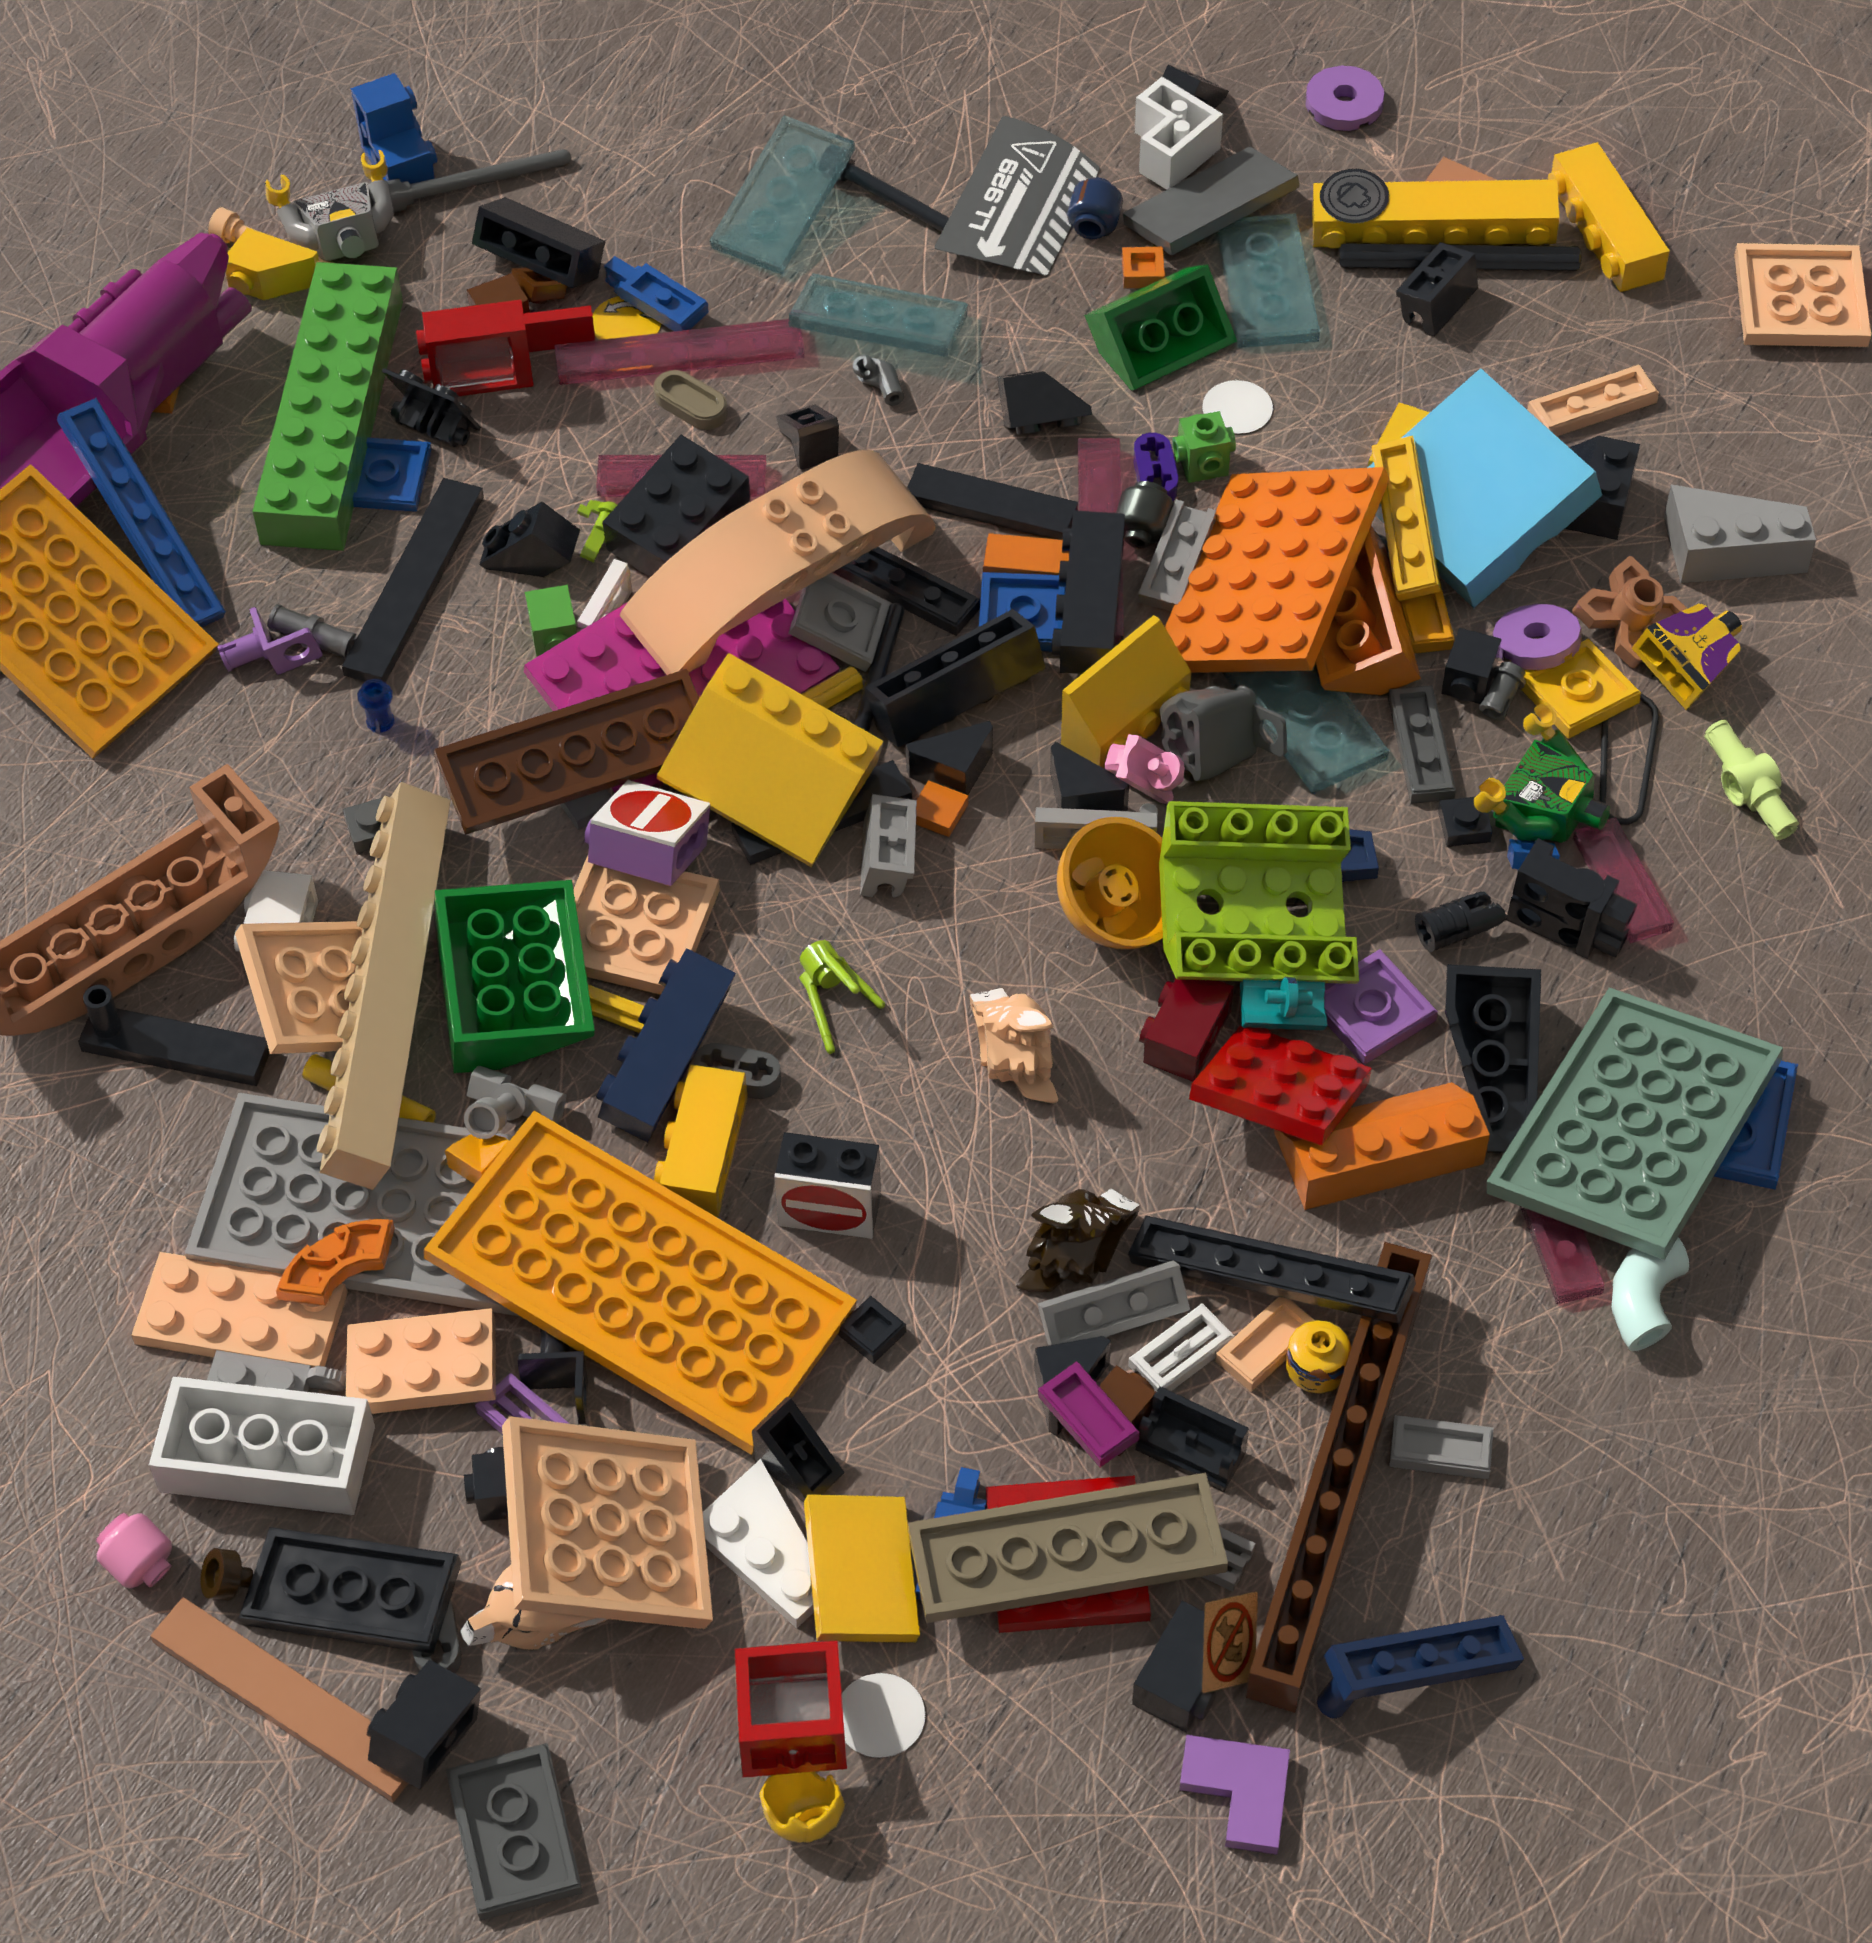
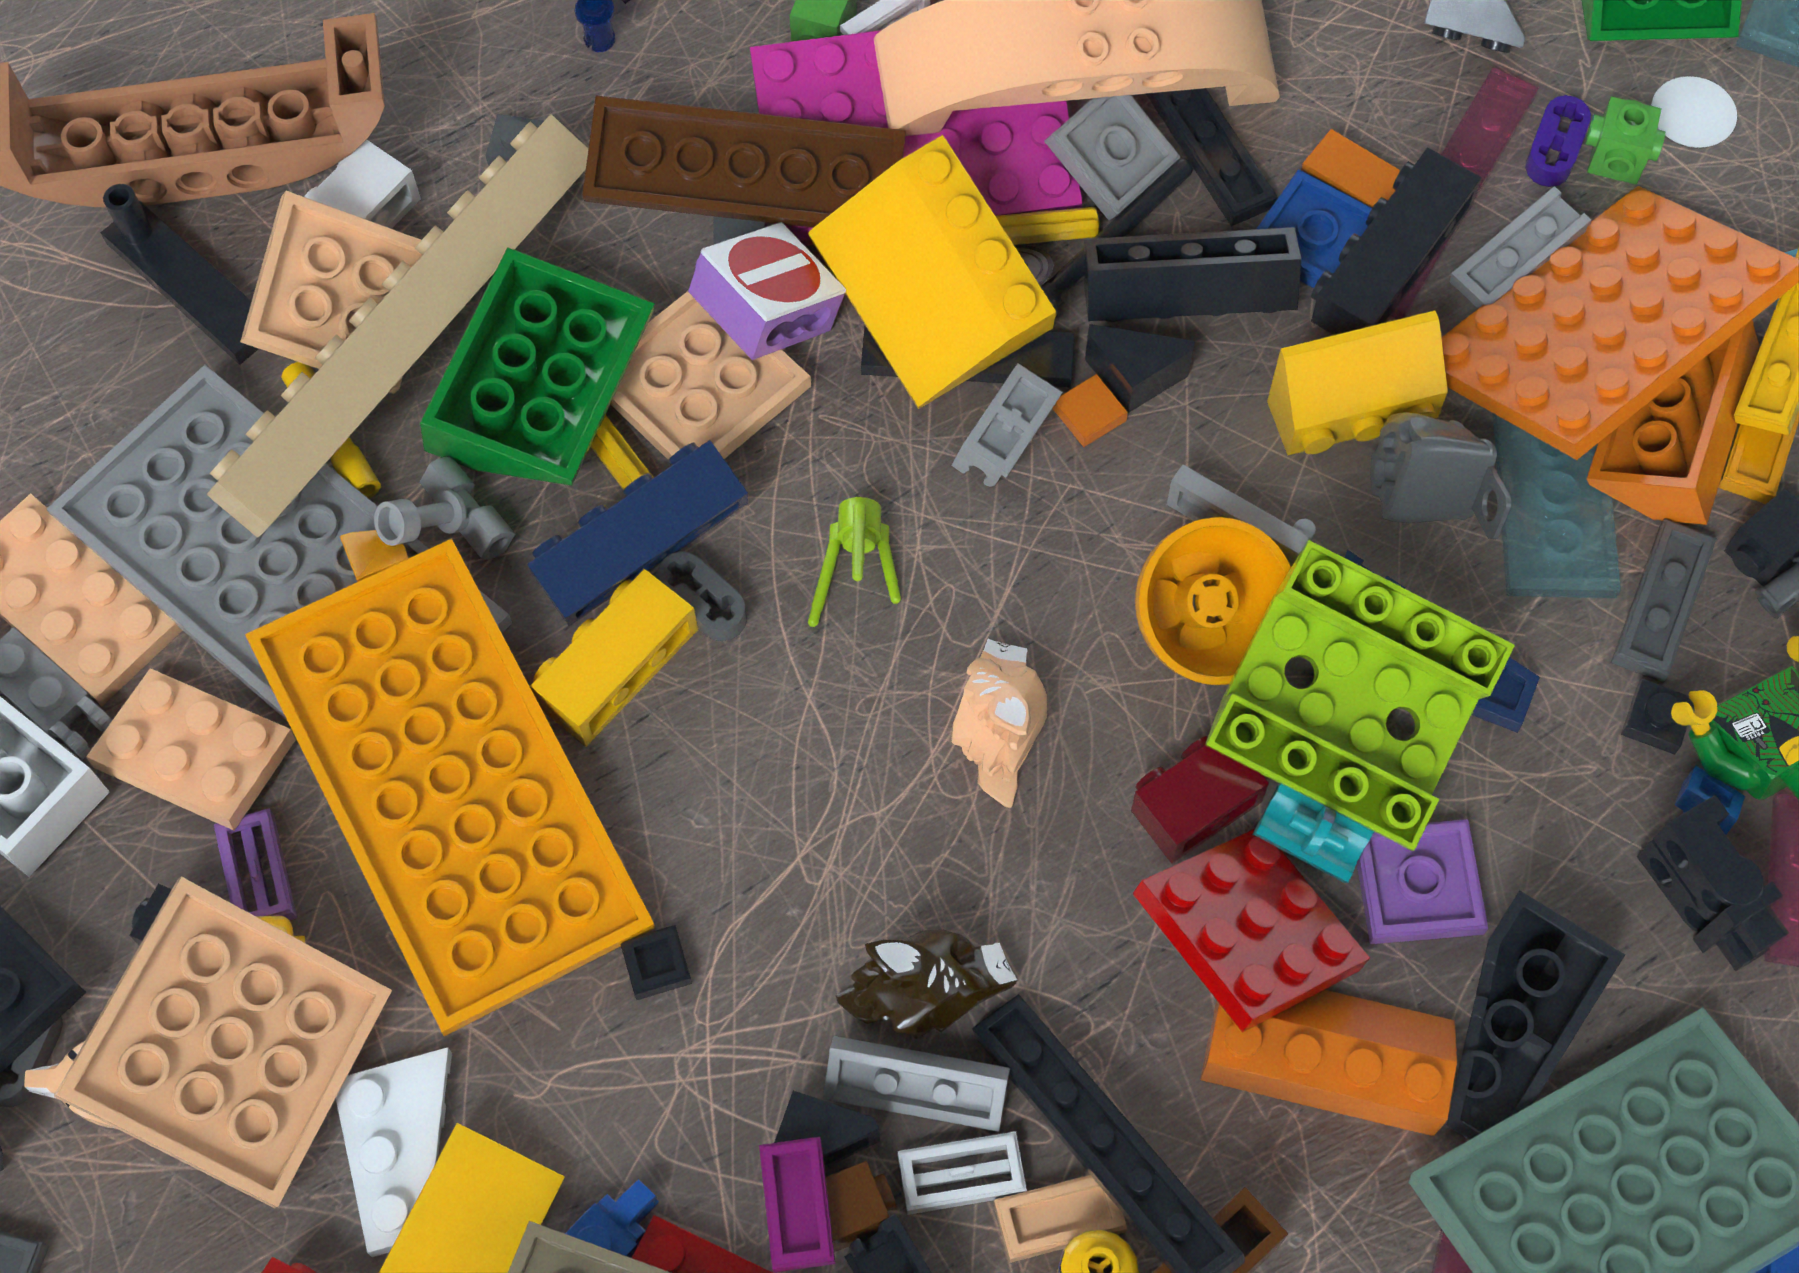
camera: 30 degrees right, 10 degrees up
(334, 1258) = (174, 592): orange tile -> none
(556, 1369) = (315, 830): black bracket -> none
(794, 1452) = (482, 1064): black slope -> none
(828, 1185) = (697, 780): piece -> none
(991, 502) = (1356, 93): black tile -> none
(1085, 784) = (1254, 465): black slope -> none
(1145, 512) = (1511, 184): pearl dark grey head -> none
(1146, 767) = (1329, 479): bright pink hips -> none
(1458, 920) = (1578, 832): black hinge -> none

